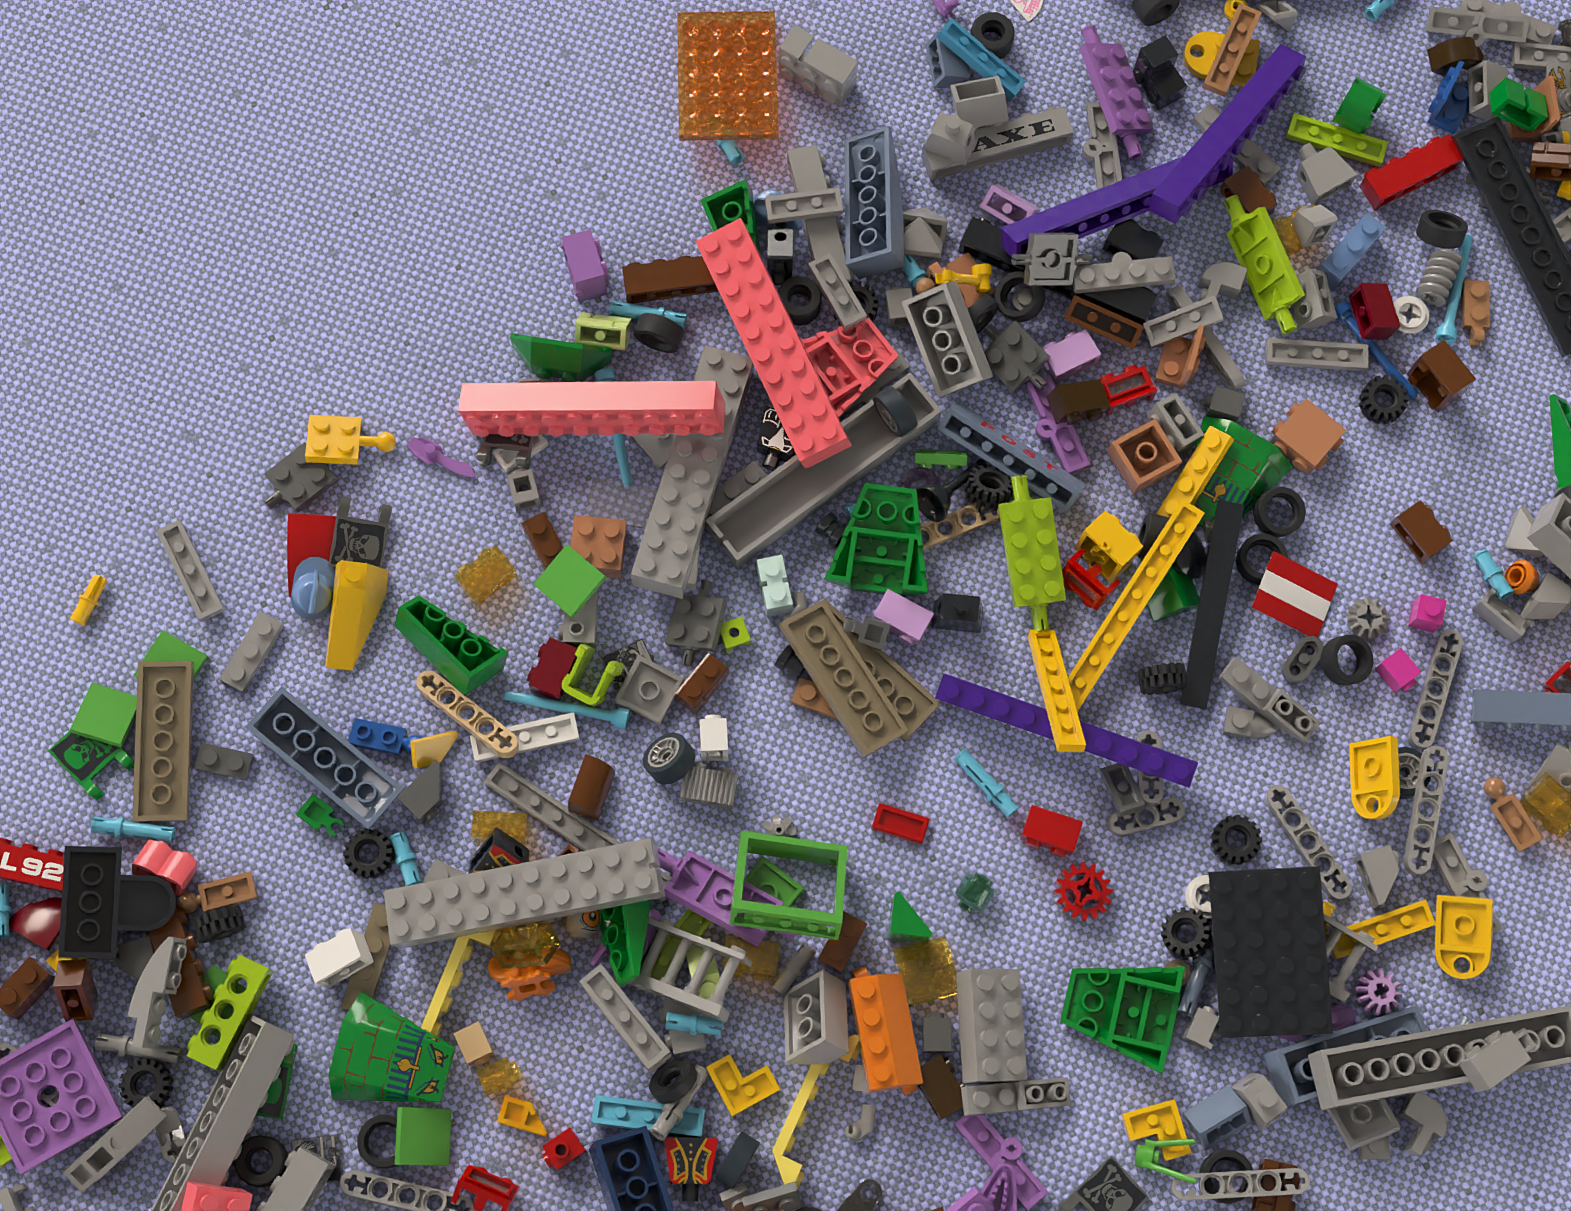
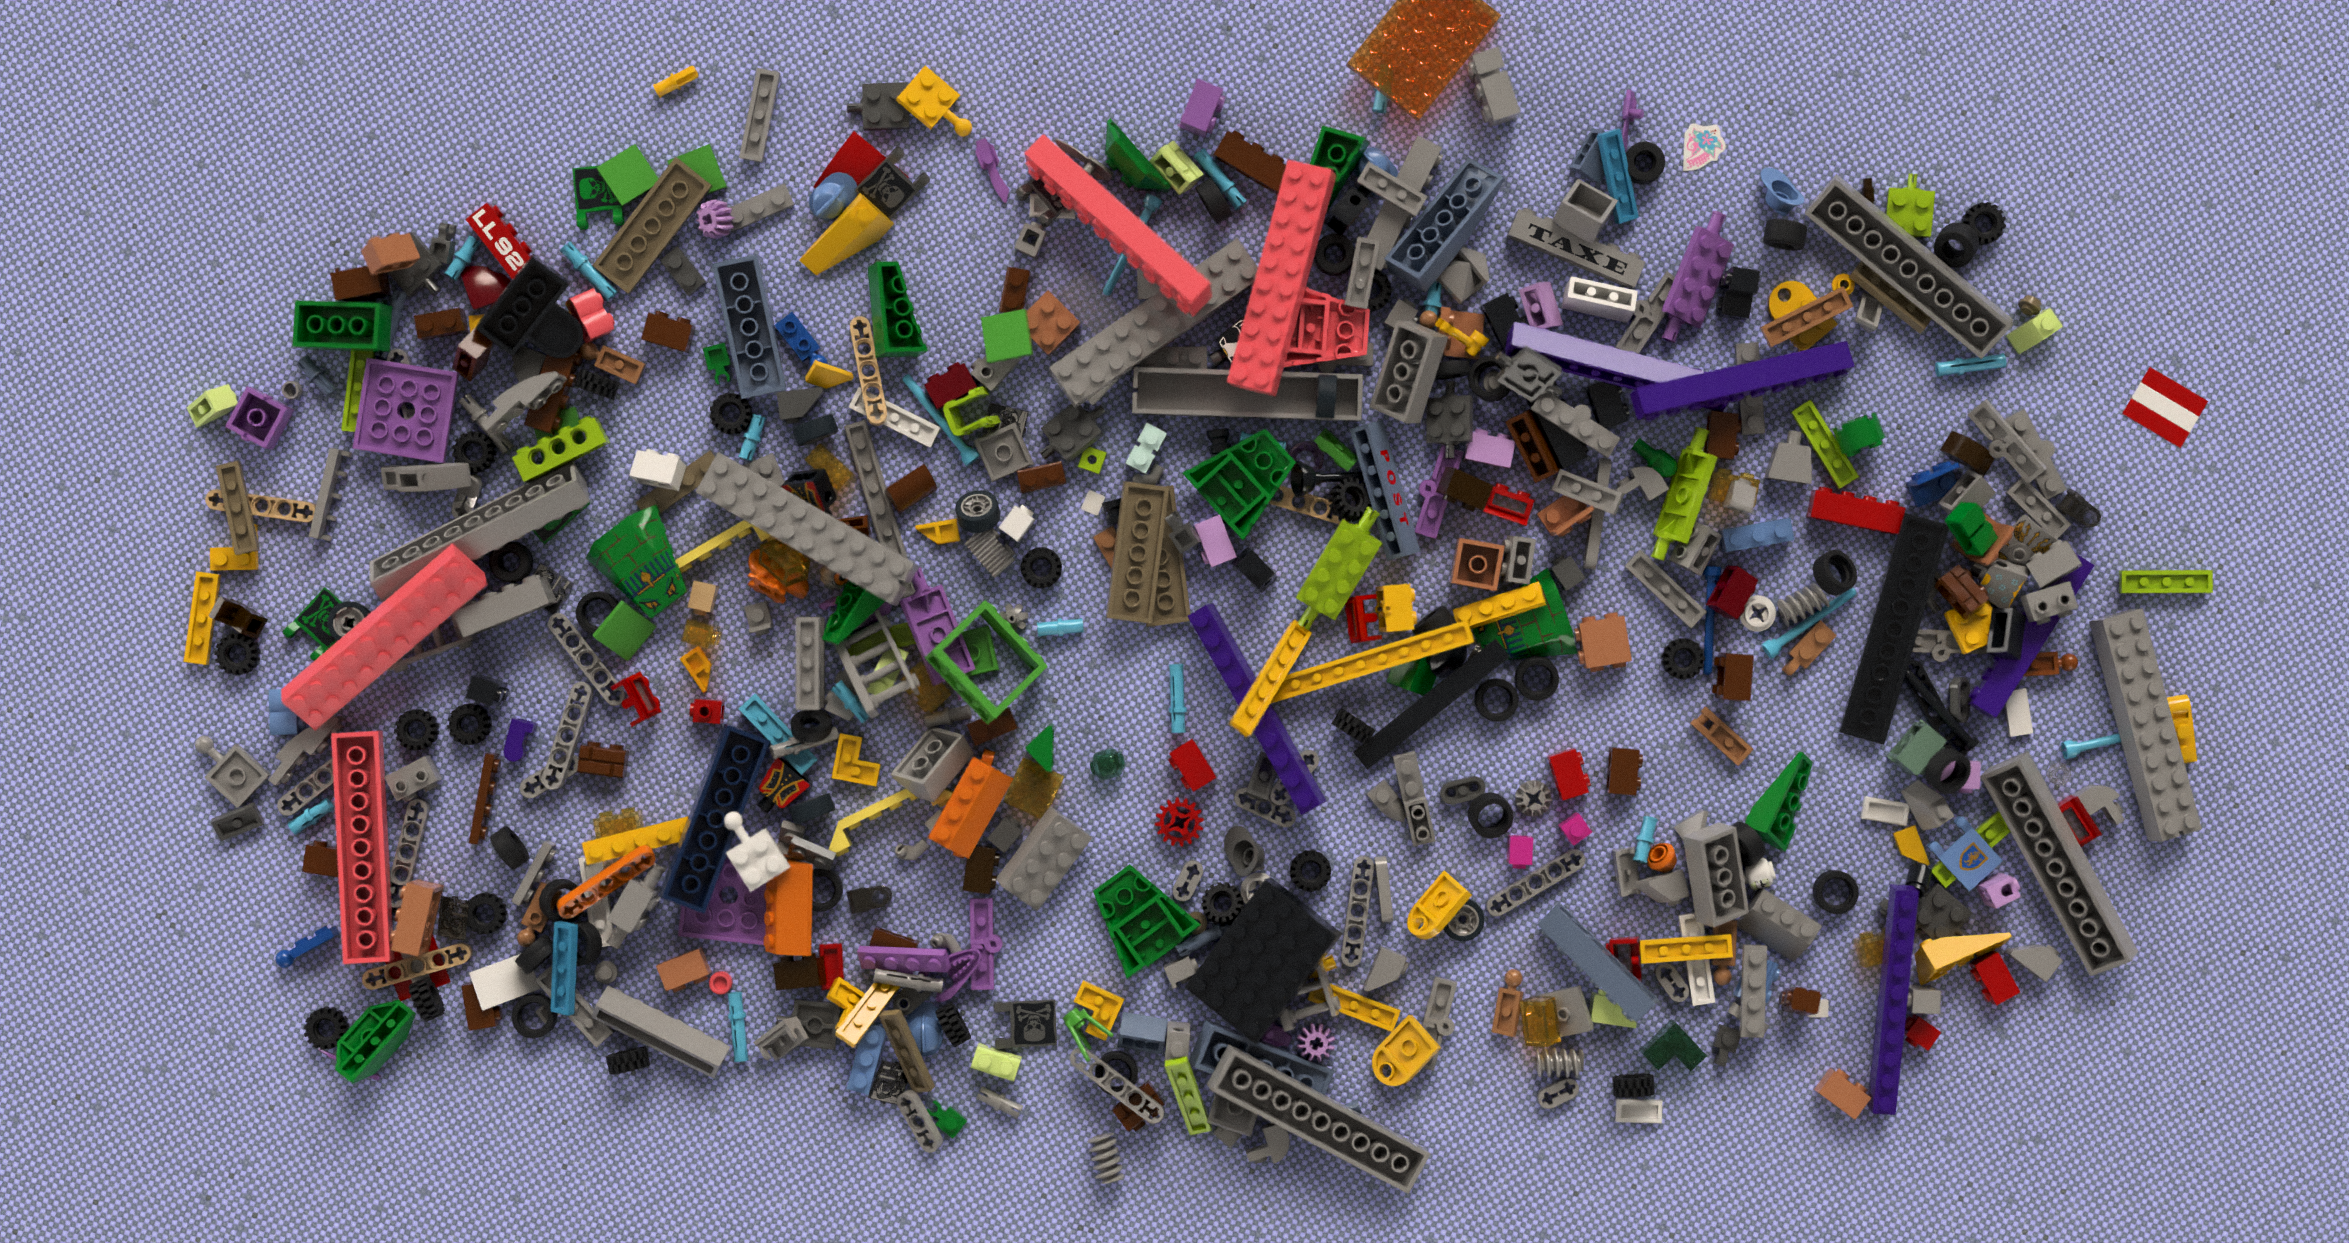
camera: 45 degrees right, 15 degrees up
(218, 689) = (715, 219): none -> lavender gear
(252, 825) = (668, 332): none -> reddish brown brick
(460, 804) = (815, 430): none -> black wheel
(485, 574) = (956, 281): clear yellow brick -> none
(543, 1022) = (759, 618): none -> light grey bracket
(649, 807) = (941, 532): none -> yellow tile
(765, 673) = (1093, 502): none -> white sticker
(767, 749) = (1055, 567): none -> black tyre
(828, 804) = (1060, 627): none -> medium azure pin
(900, 823) = (1098, 678): red tile -> none
(951, 138) = (1537, 224): light grey torso -> none
(965, 1183) = (945, 941): none -> light grey arm
(1015, 1096) = (1023, 915): light grey slope -> none
(1052, 165) = (1599, 299): none -> white brick
(1142, 939) = (1192, 883): none -> light grey beam
(1162, 870) = (1243, 851): none -> dark grey piece
(1213, 254) = (1656, 459): none -> green arm
(1294, 595) = (1495, 743): red sticker -> none
(1312, 1138) = (1188, 1095): none -> lime plate
(1314, 803) = (1383, 889): none -> light grey beam
(1379, 571) = (1569, 774): none -> red brick
(1417, 820) = (1447, 966): light grey beam -> none
(1474, 437) = (1722, 737): none -> medium nougat plate
(1496, 1058) = (1345, 1146): light grey brick -> none

